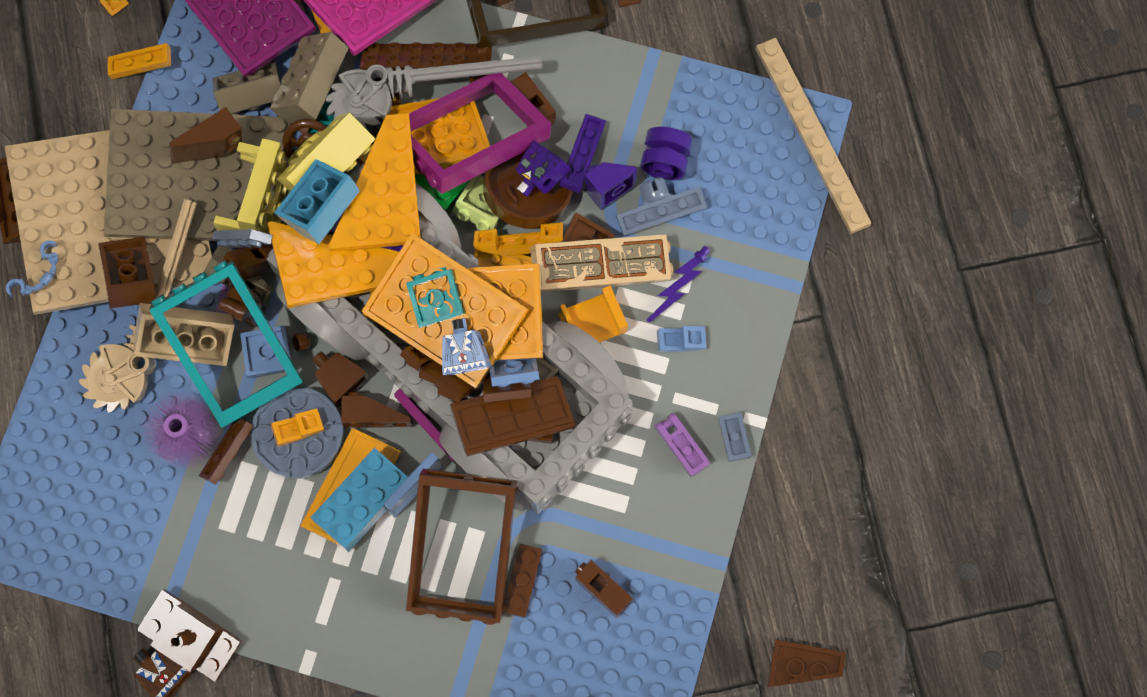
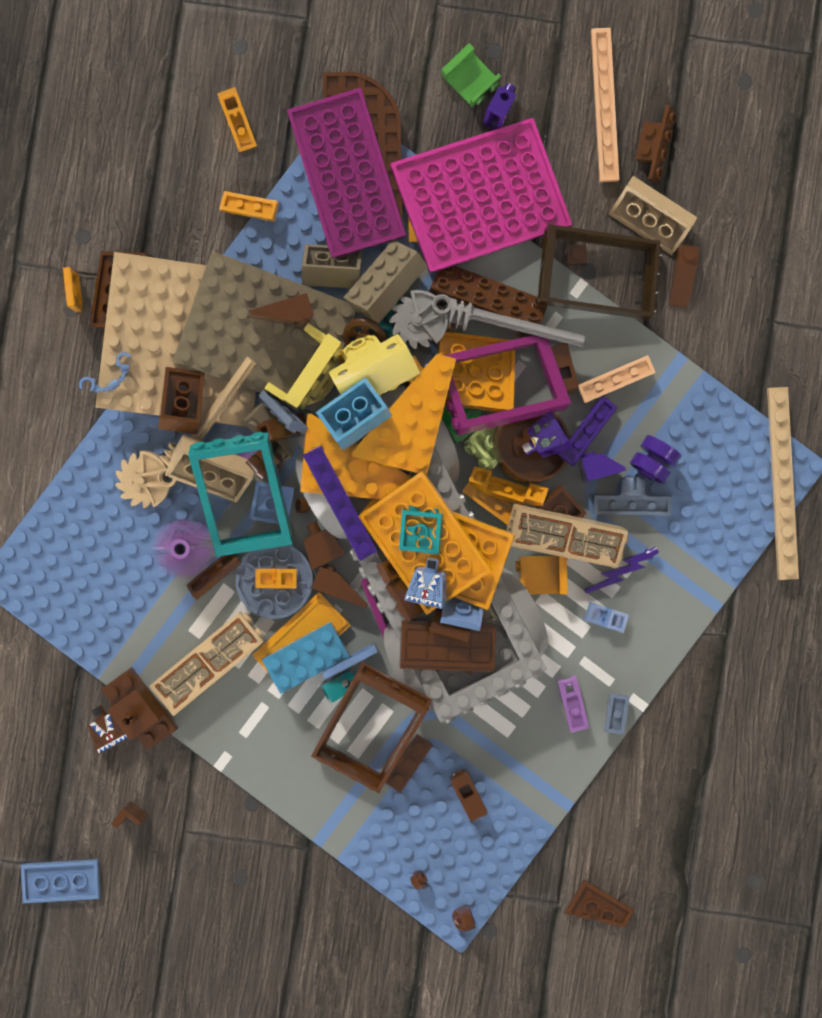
camera: 15 degrees right, 15 degrees up
(251, 551) = (207, 662): none -> brick
(335, 301) = (339, 503): none -> dark purple plate
(402, 522) = (333, 687): none -> teal torso
(592, 93) = (616, 379): none -> light nougat plate

